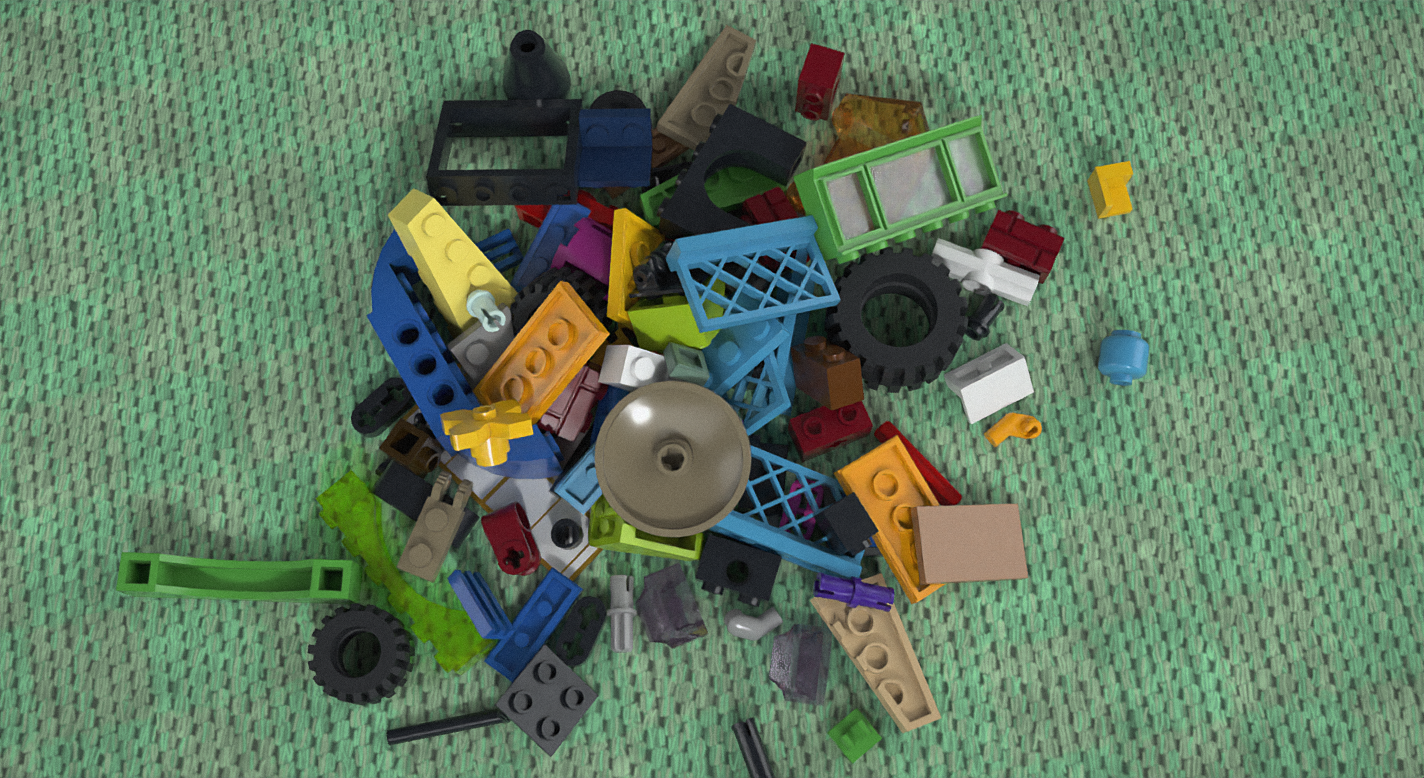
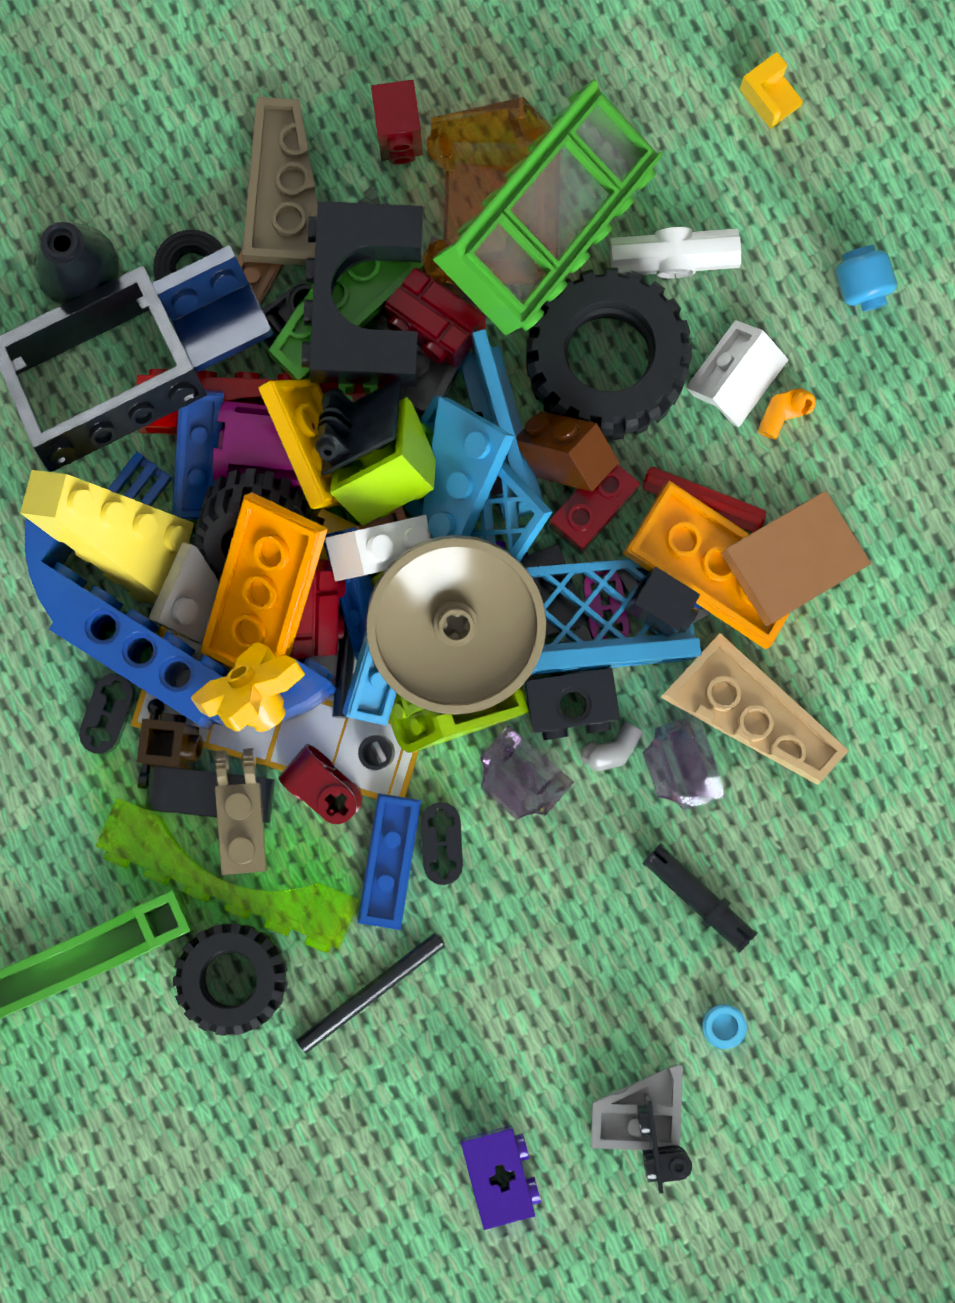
camera: 25 degrees left, 10 degrees up
(481, 605) = (326, 868): blue tile -> none
(482, 305) = (165, 557): light aqua pin -> none
(546, 700) = (444, 930): black hinge -> none
(621, 613) = (474, 804): light grey axle -> none
(686, 363) = (421, 519): sand green tile -> none
(738, 246) = (412, 370): dark azure fence -> none
(853, 592) = (702, 668): dark purple pin -> none
(854, 735) = (769, 810): bright green tile -> none
(983, 317) = (699, 303): black pin -> none
(1023, 243) = (703, 200): dark red brick -> none

